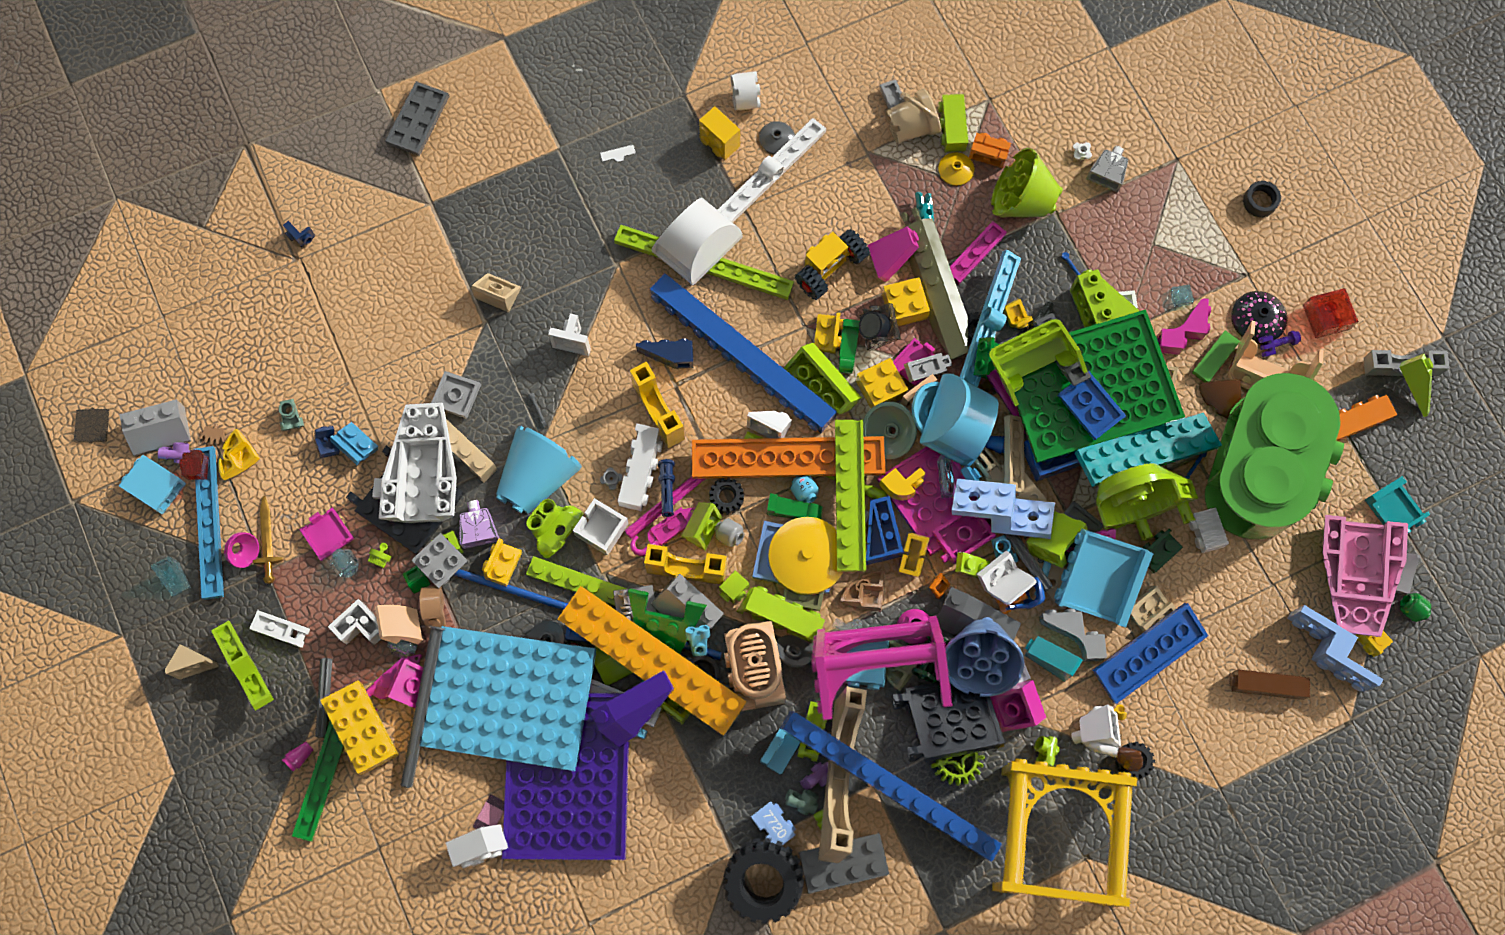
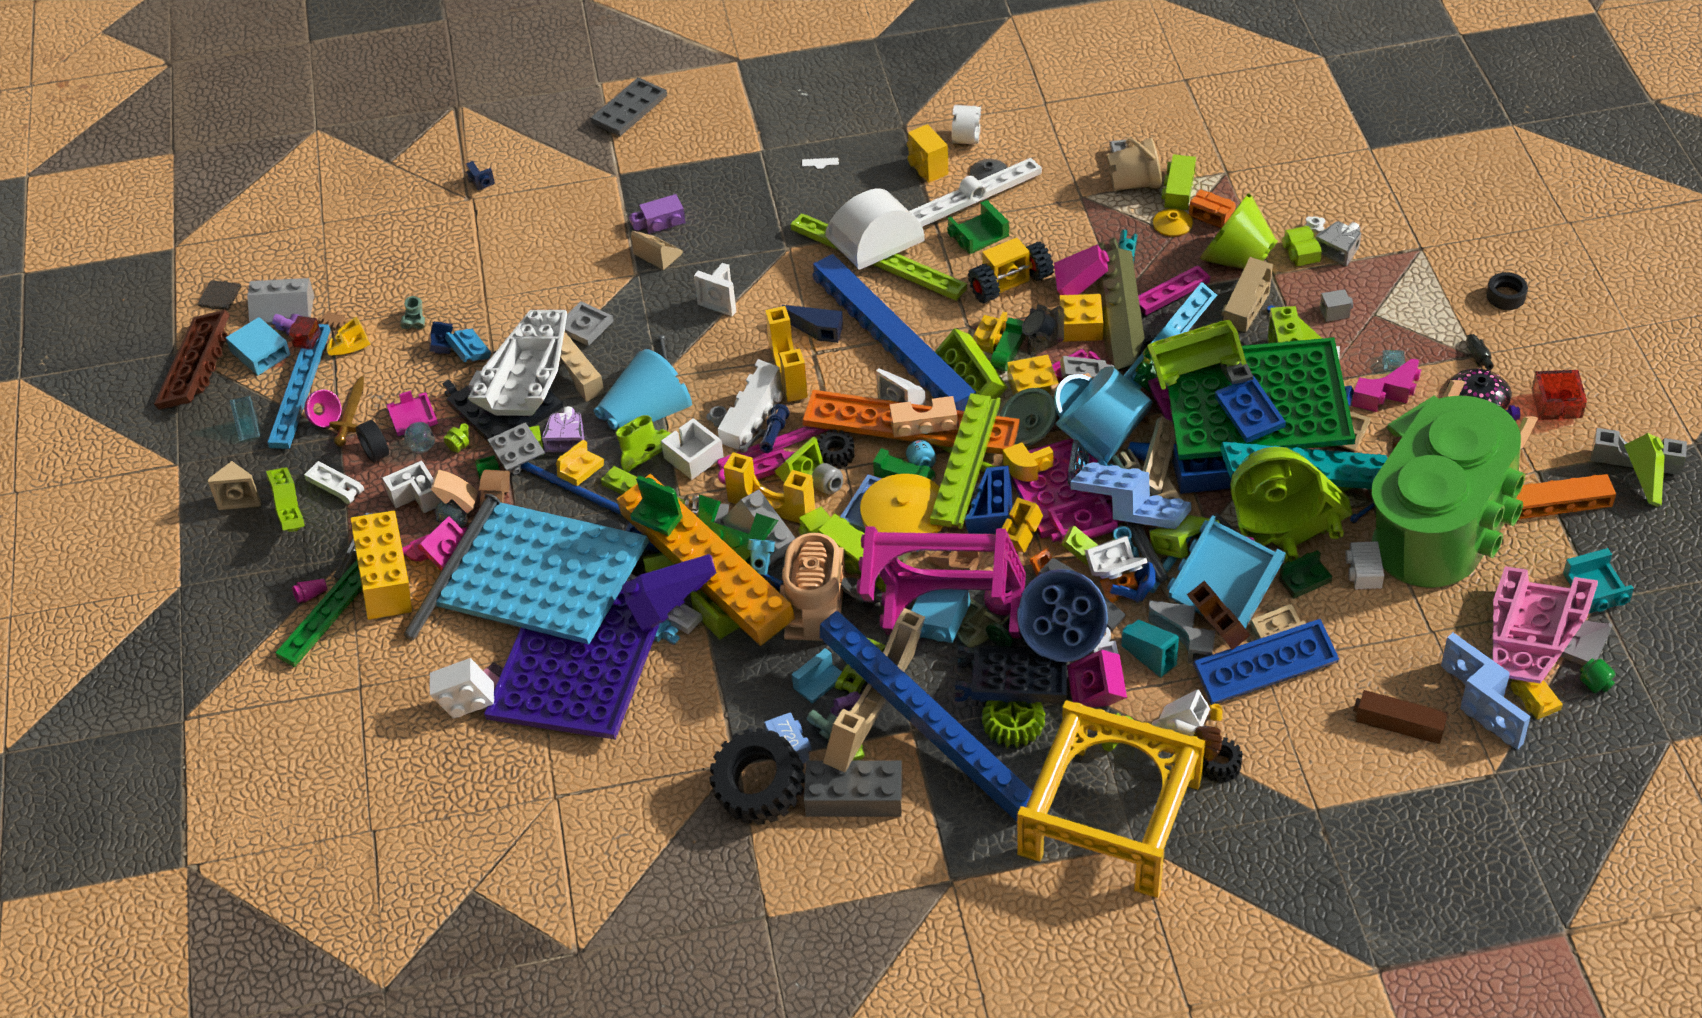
camera: 20 degrees right, 25 degrees down
(96, 515) = (194, 360): none -> copper plate
(301, 579) = (372, 440): none -> black tyre
(486, 250) = (658, 214): none -> medium lavender brick
(601, 634) = (658, 506): none -> green bracket
(646, 515) = (744, 448): none -> dark grey hinge
(787, 211) = (981, 230): none -> green panel
(788, 465) = (907, 421): none -> light nougat arch
(1045, 251) = (1249, 294): none -> tan wedge
(1077, 179) = (1302, 246): none -> lime brick
(1115, 631) = (1218, 615): none -> reddish brown arch
(1121, 244) = (1335, 305): none -> light grey brick
(1252, 272) = (1480, 351): none -> pearl dark grey piece

